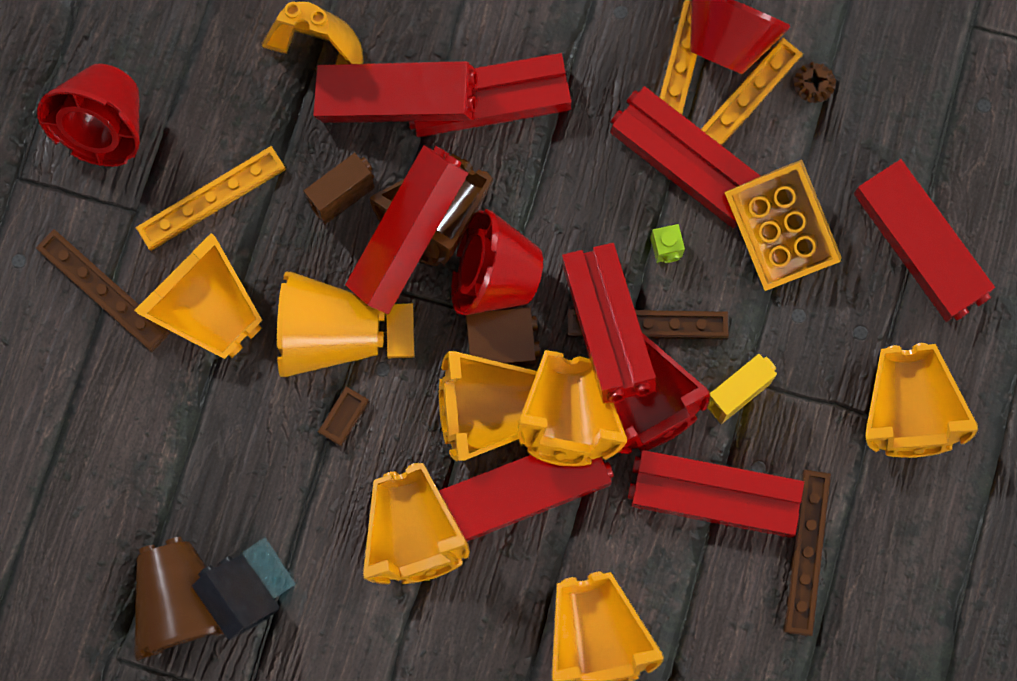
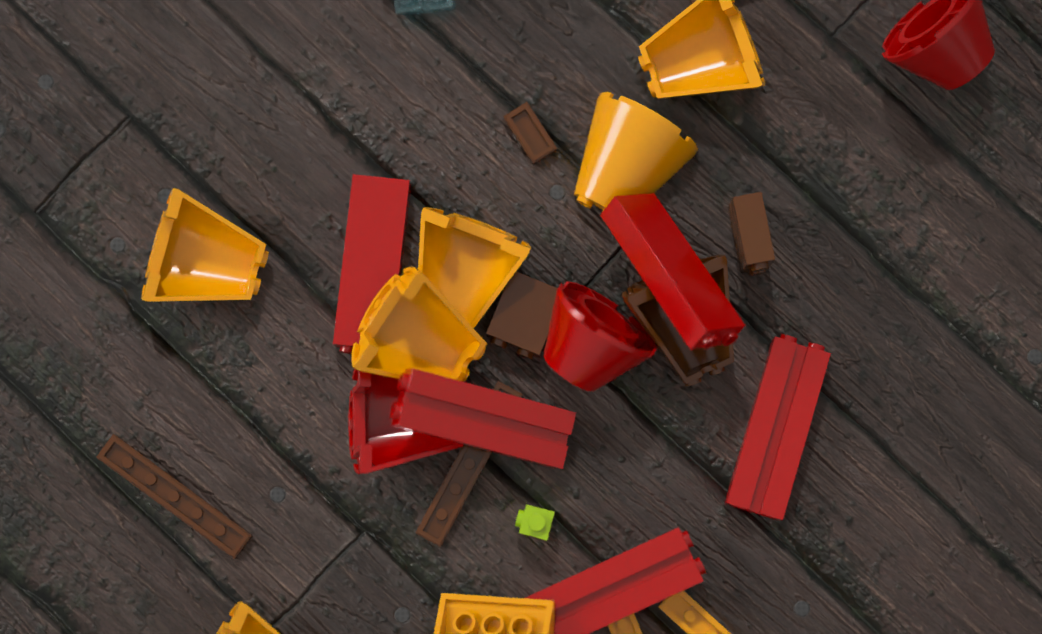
camera: 120 degrees right, 5 degrees up
(210, 198) = (808, 113): light orange tile -> none
(317, 22) = (923, 295): light orange cone -> none
(395, 92) = (821, 333): red brick -> none
(400, 331) = (583, 226): light orange tile -> none
(411, 530) = (389, 136): light orange cone -> none
(716, 493) = (272, 438): red brick -> none
(741, 388) = (355, 513): yellow brick -> none

